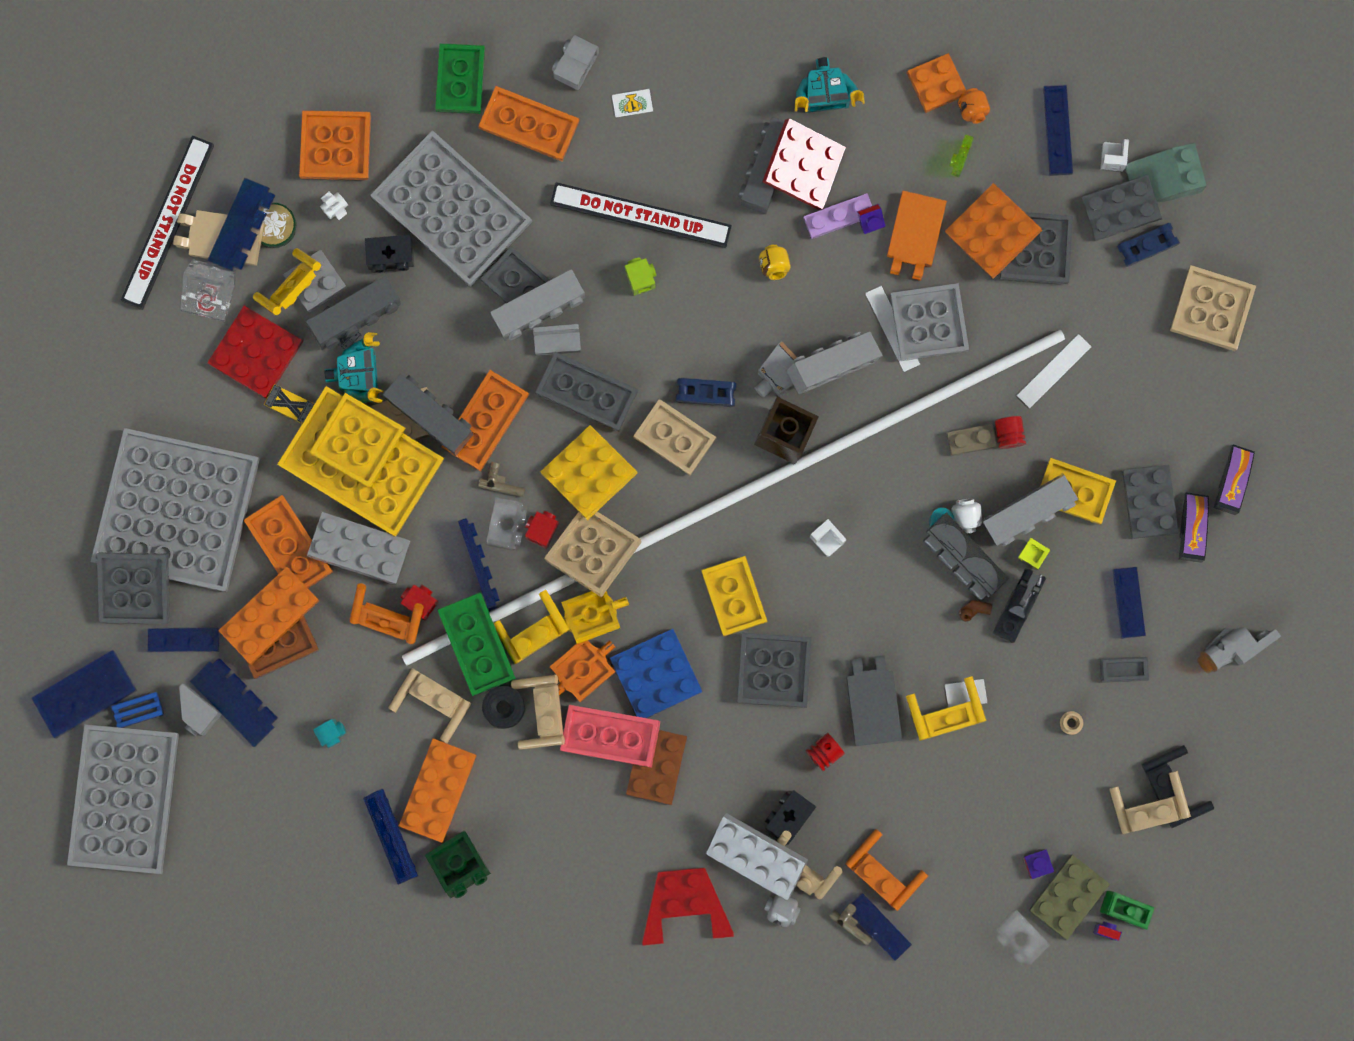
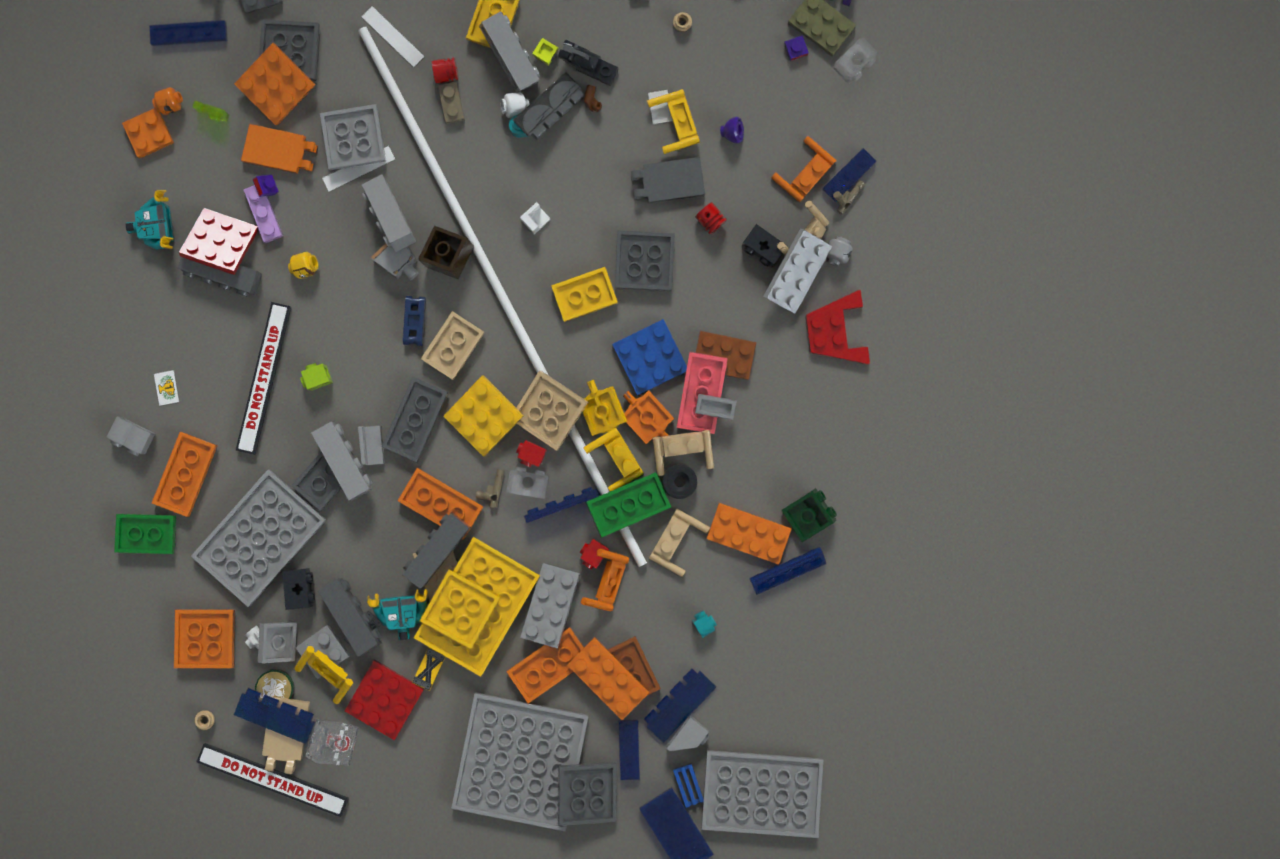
camera: 90 degrees left, 5 degrees up
(240, 138) = (199, 722): none -> tan plate
(327, 228) = (277, 642): none -> light grey plate
(592, 751) = (715, 406): none -> light grey tile
(934, 782) = (733, 130): none -> dark purple brick

